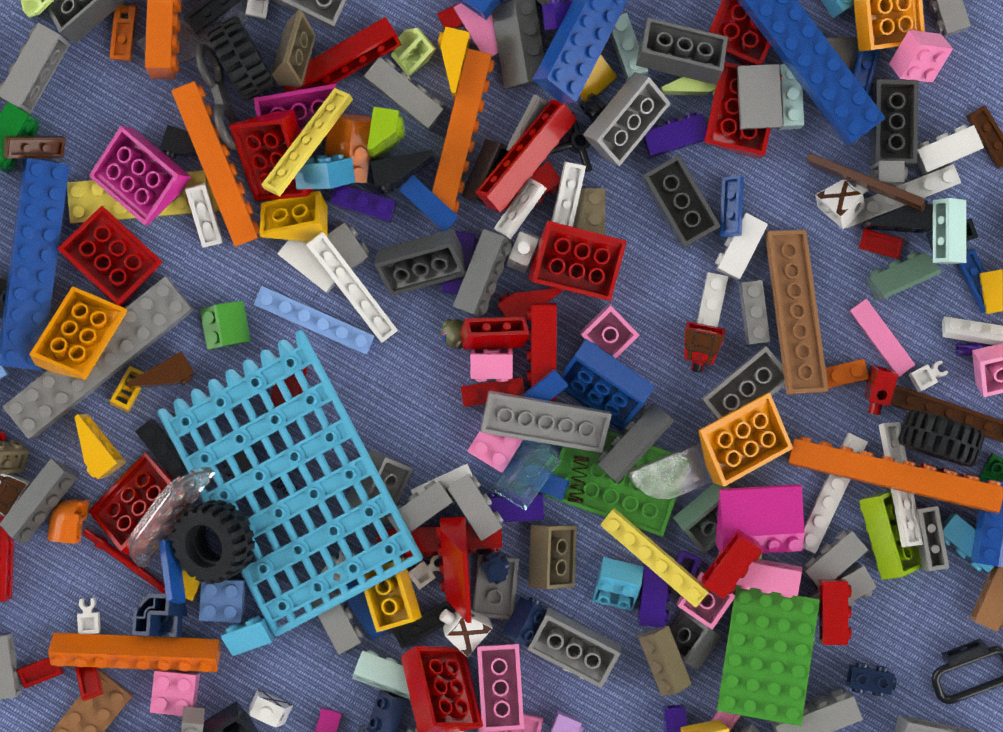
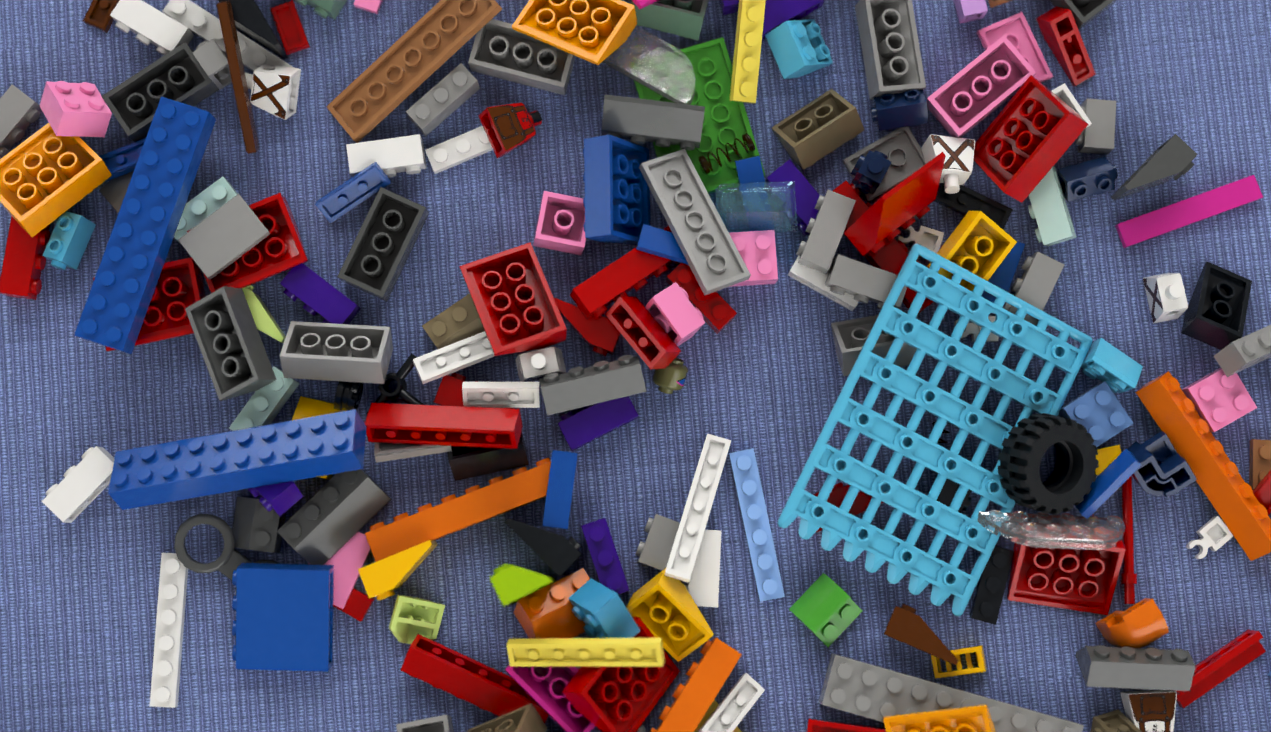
camera: 125 degrees left, 5 degrees down
(97, 450) = (1042, 646): yellow slope -> none
(404, 94) = (465, 596): light grey brick -> none
(421, 262) = (624, 456): dark grey slope -> none

